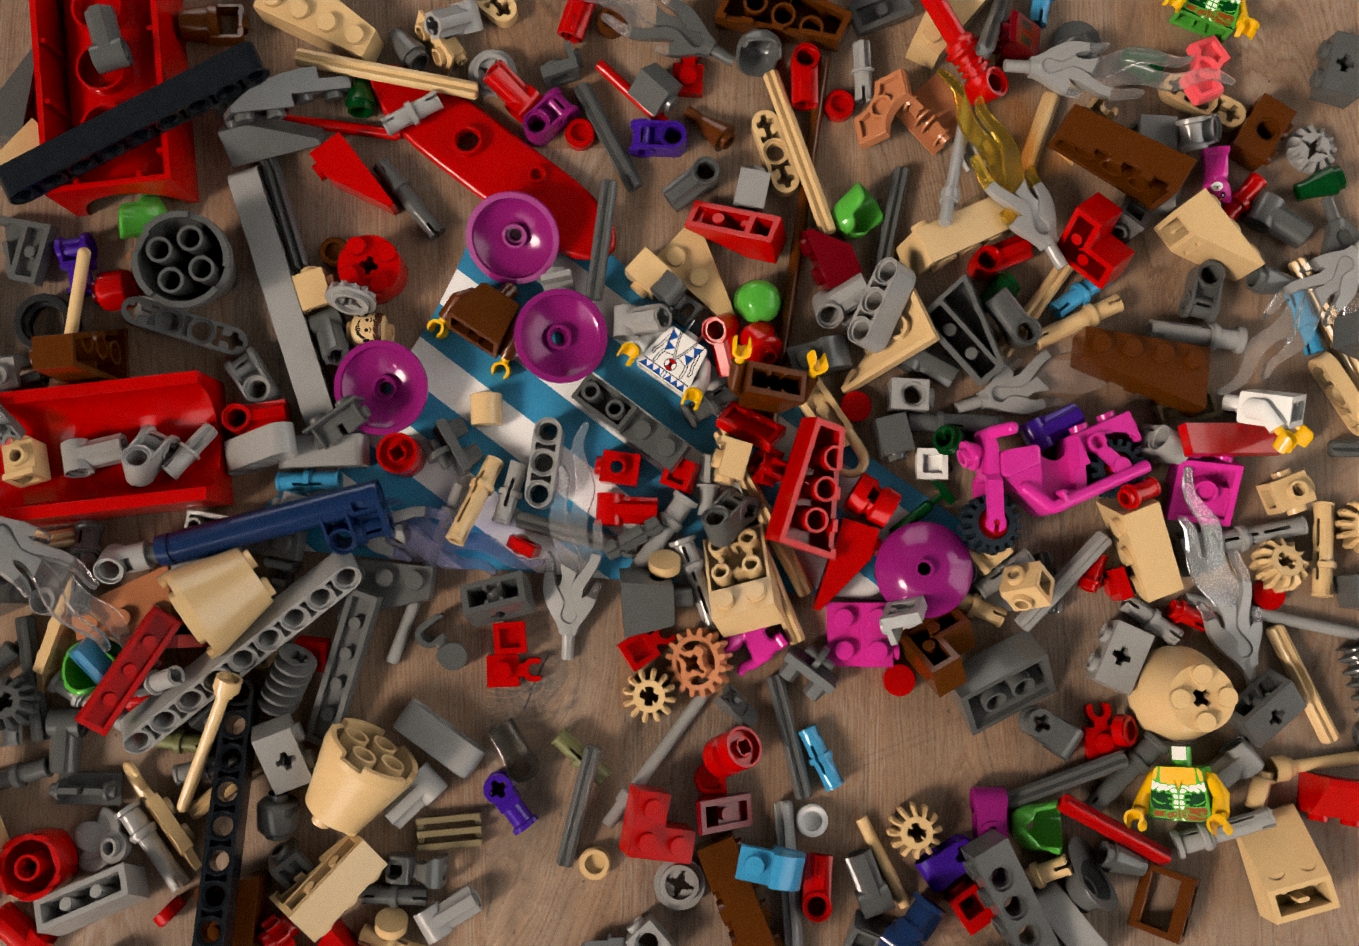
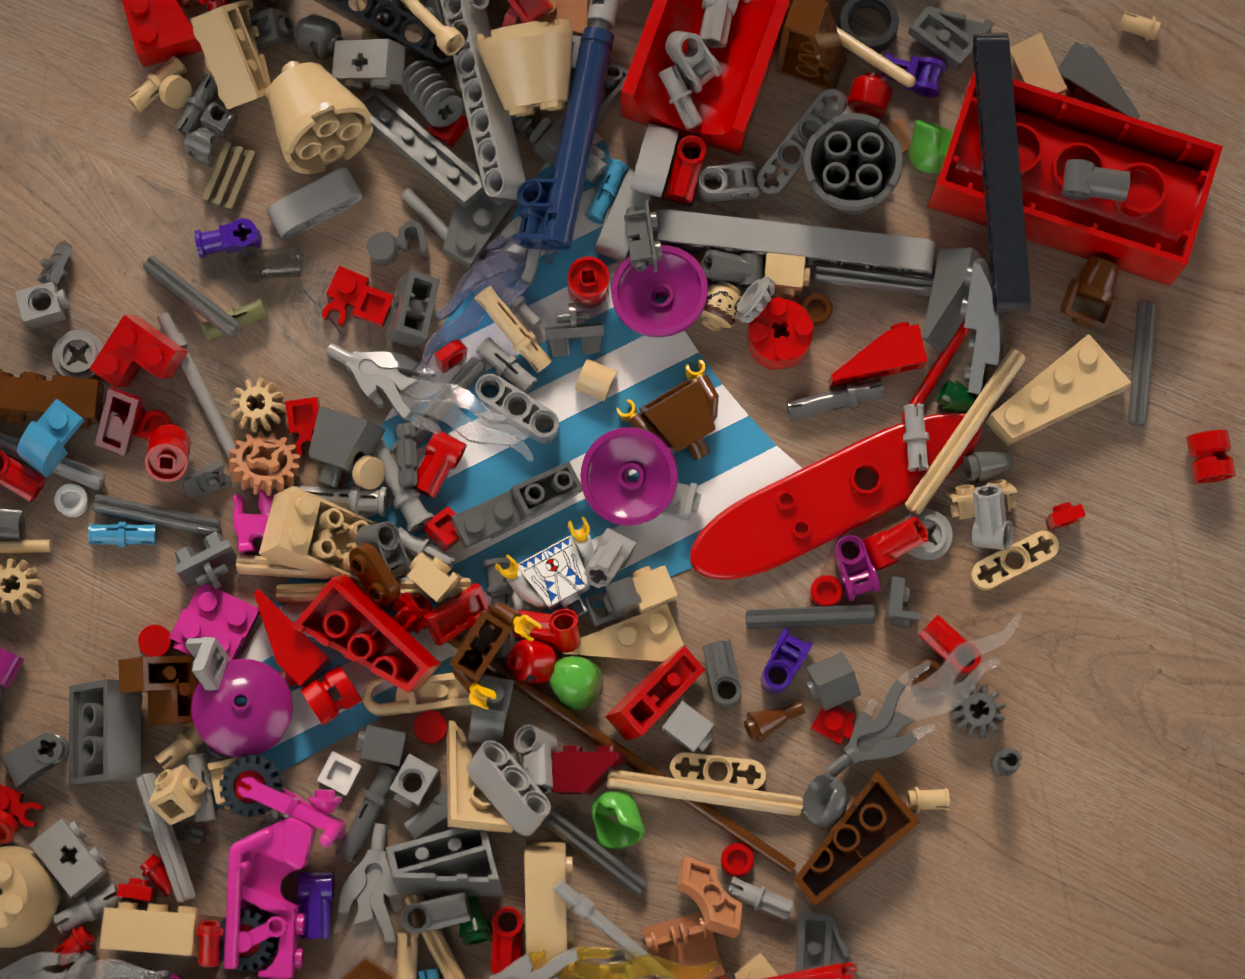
camera: 110 degrees right, 5 degrees down
(421, 792) = (274, 166): light grey piece -> none
(441, 917) = (158, 135): light grey piece -> none
(500, 253) = (737, 464): magenta dish -> none
(595, 862) = (135, 290): tan tile -> none
(601, 240) = (705, 558): dark grey axle -> none
(623, 86) = (856, 655): red bar -> none
(627, 477) = (477, 486): red brick -> none
(753, 511) = (374, 574): none -> reddish brown plate
(804, 77) = (775, 833): red piece -> none
(926, 506) = (301, 745): dark green piece -> none
(948, 438) = (353, 796): dark green cone -> none

